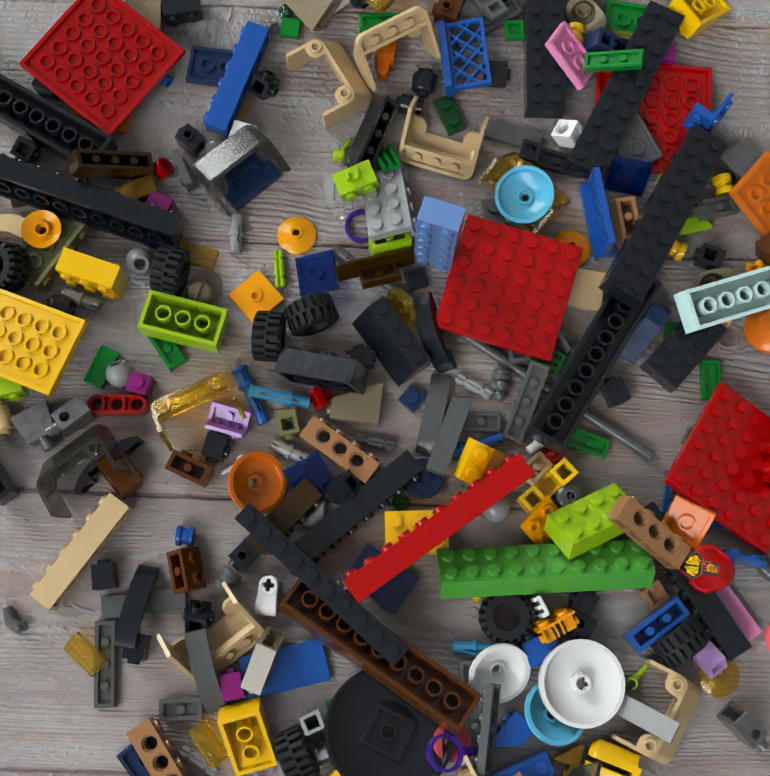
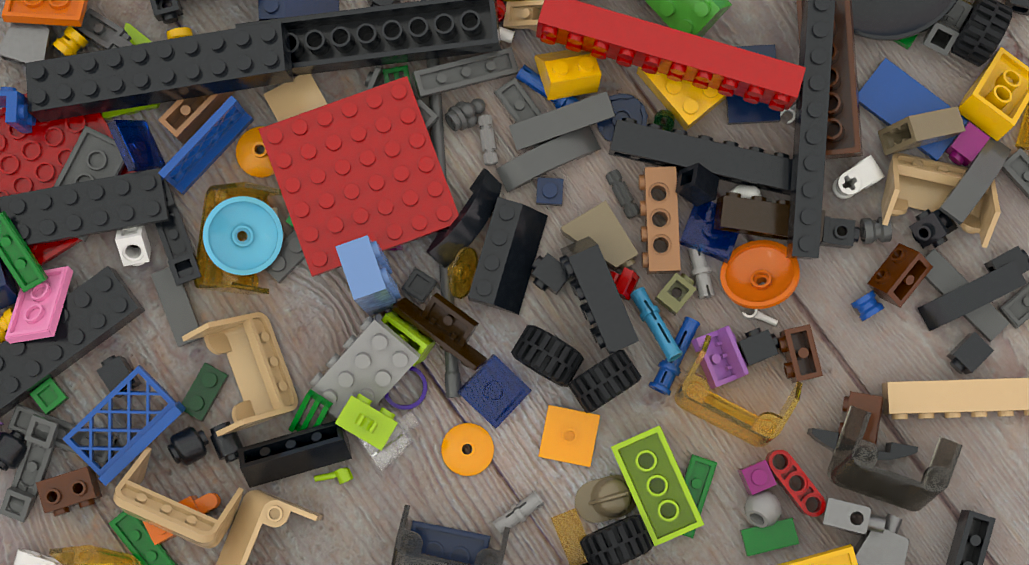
camera: 125 degrees left, 5 degrees up
(279, 269) = (519, 436): lime axle -> none

